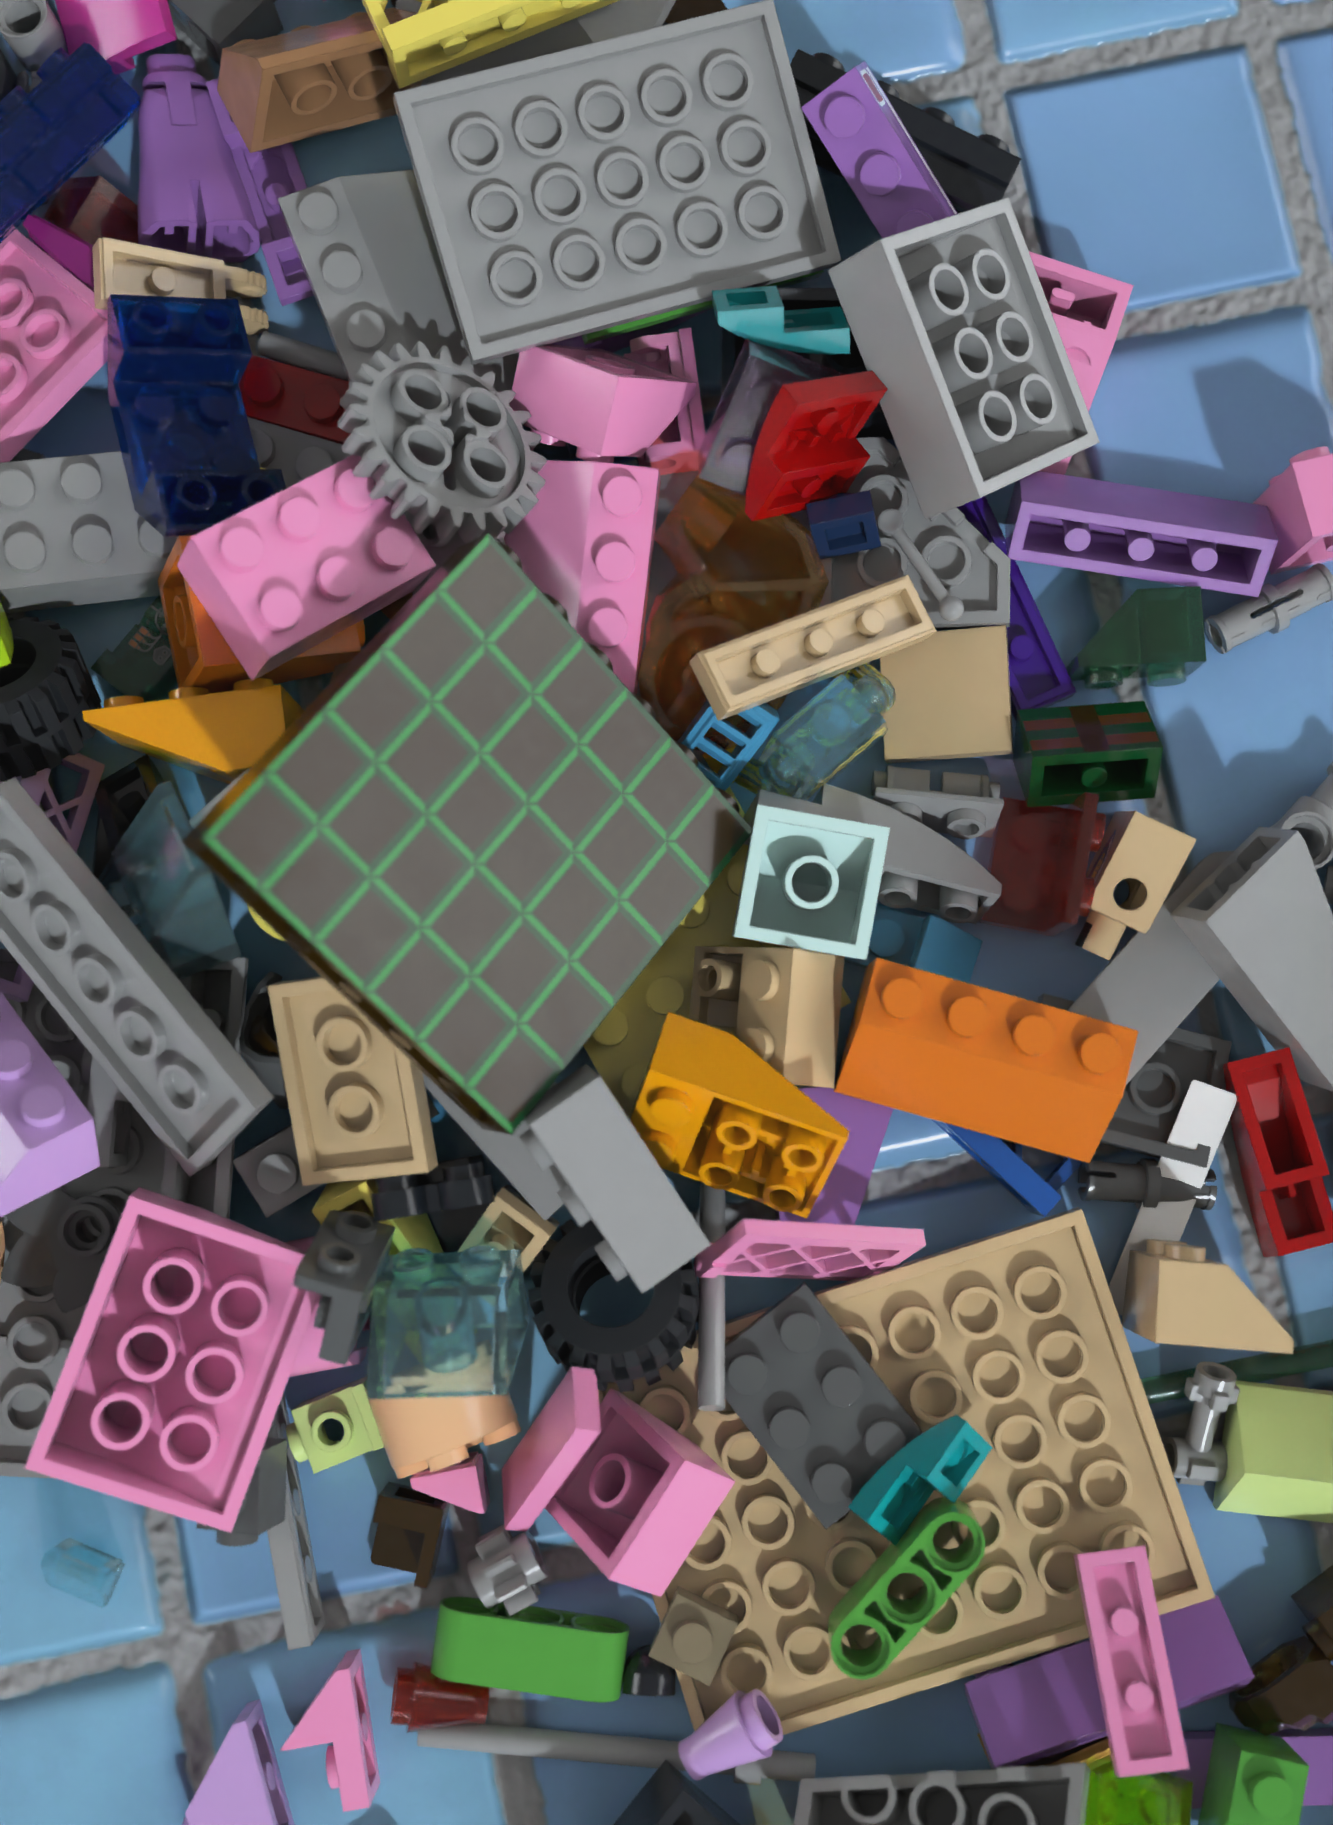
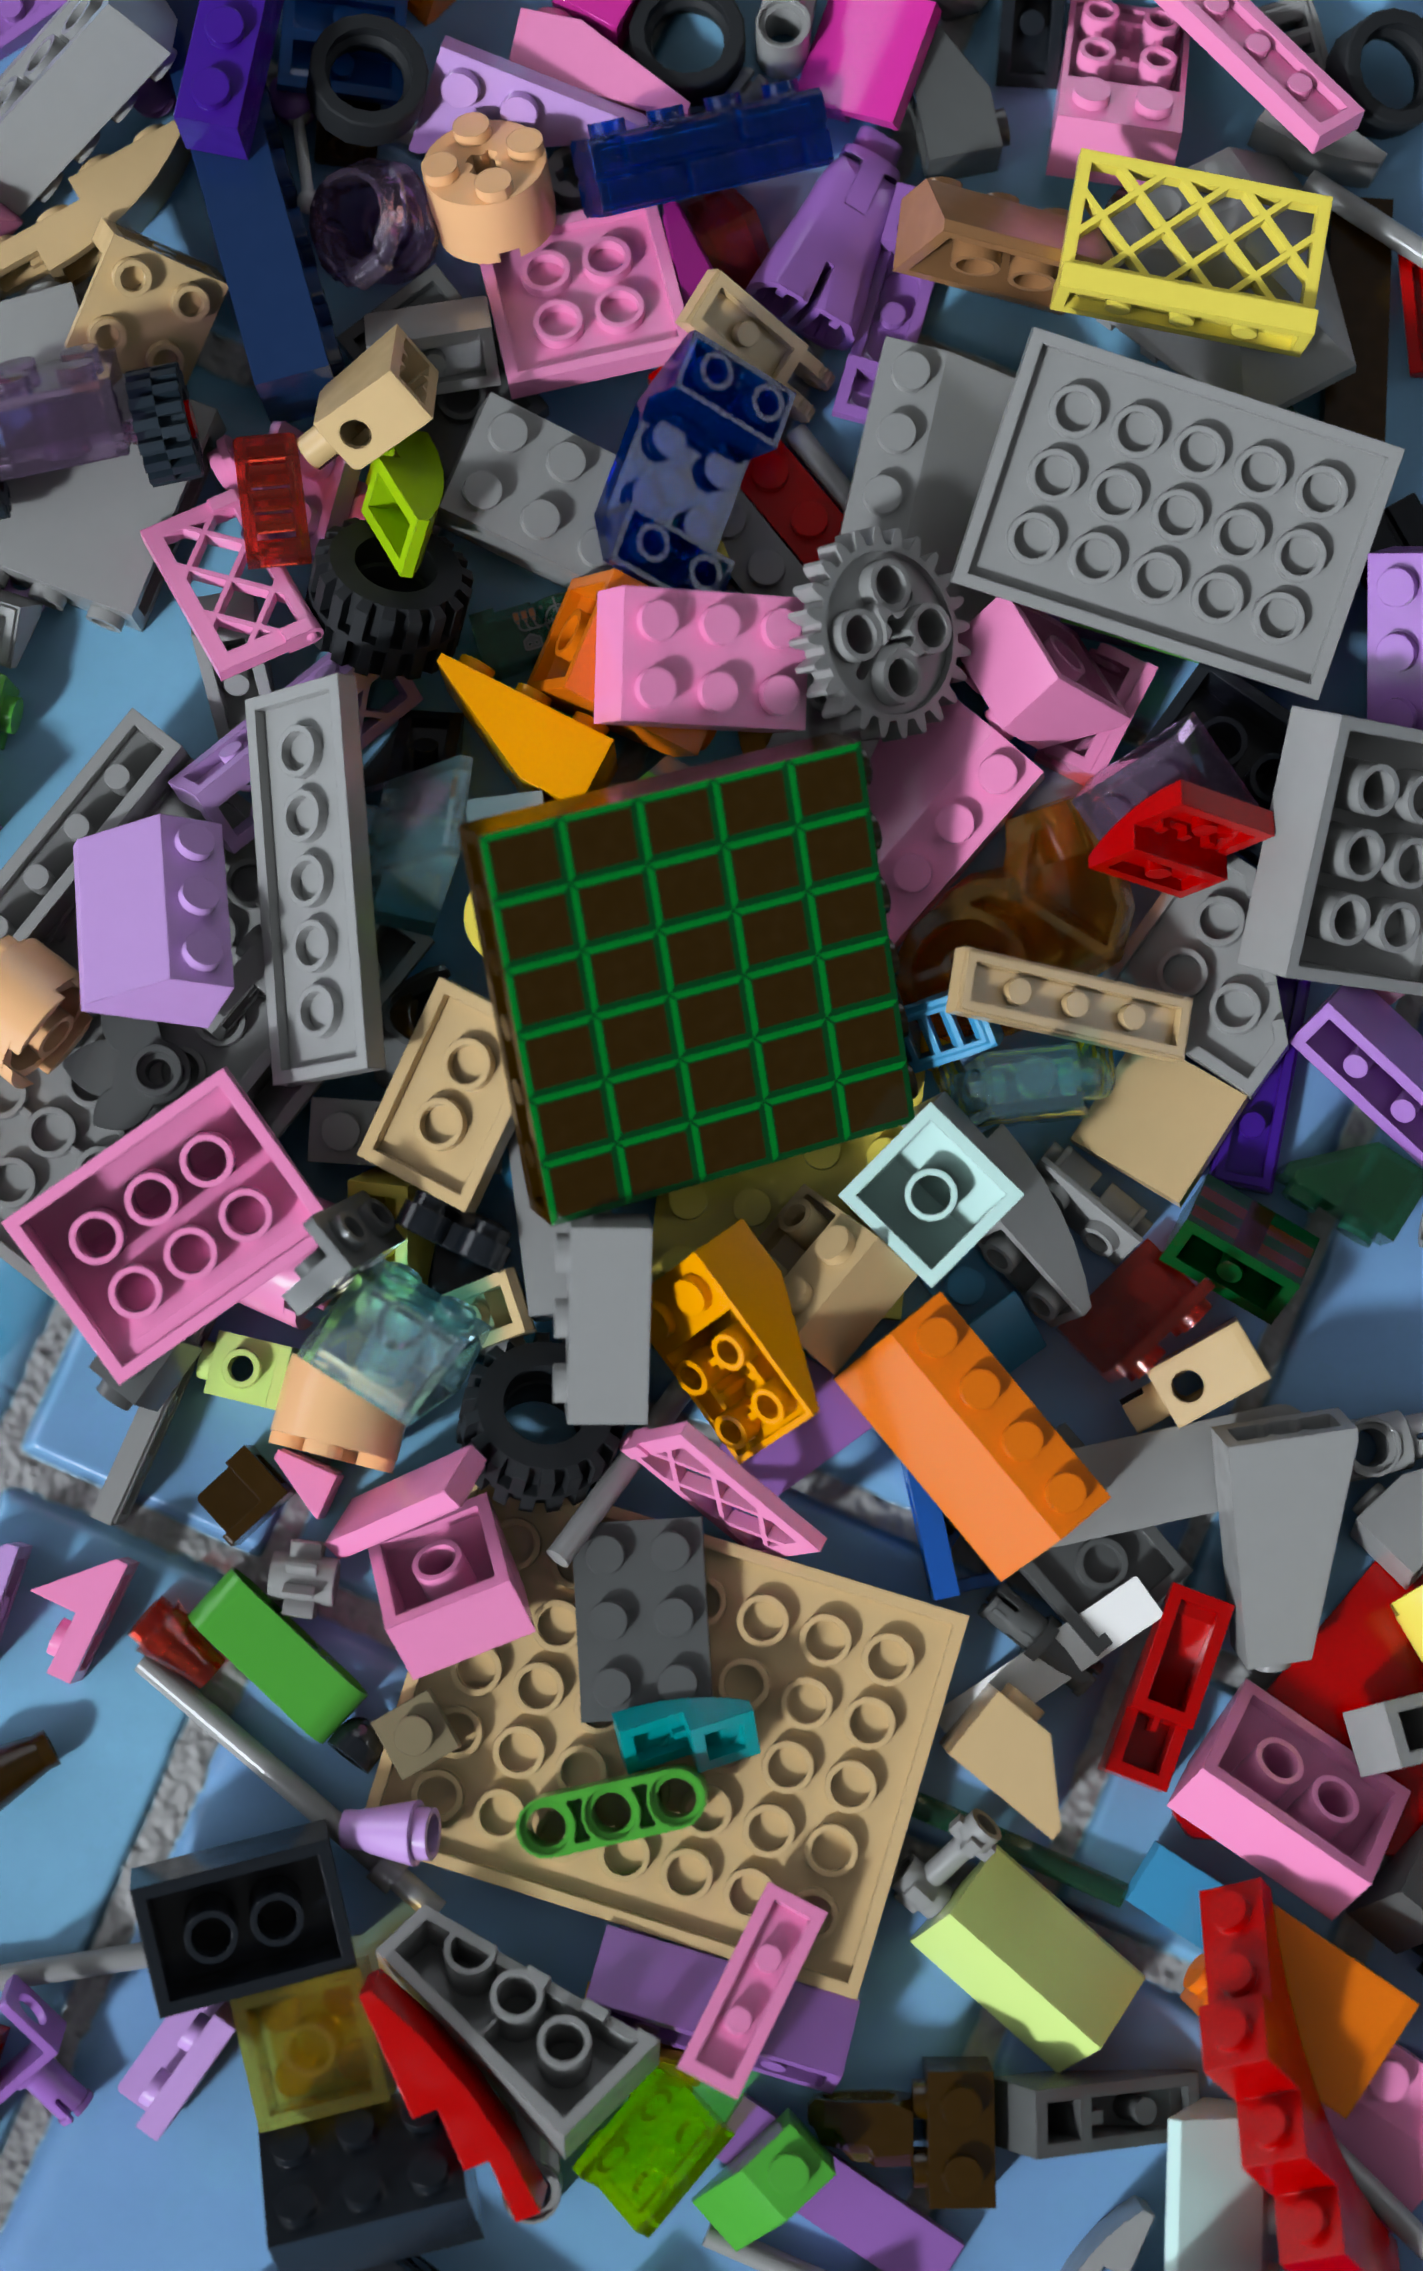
camera: 35 degrees right, 0 degrees up
(761, 317) = (1211, 703): teal slope -> none
(843, 524) = (1168, 920): dark blue plate -> none
(892, 524) = (1211, 947): light grey hinge -> none

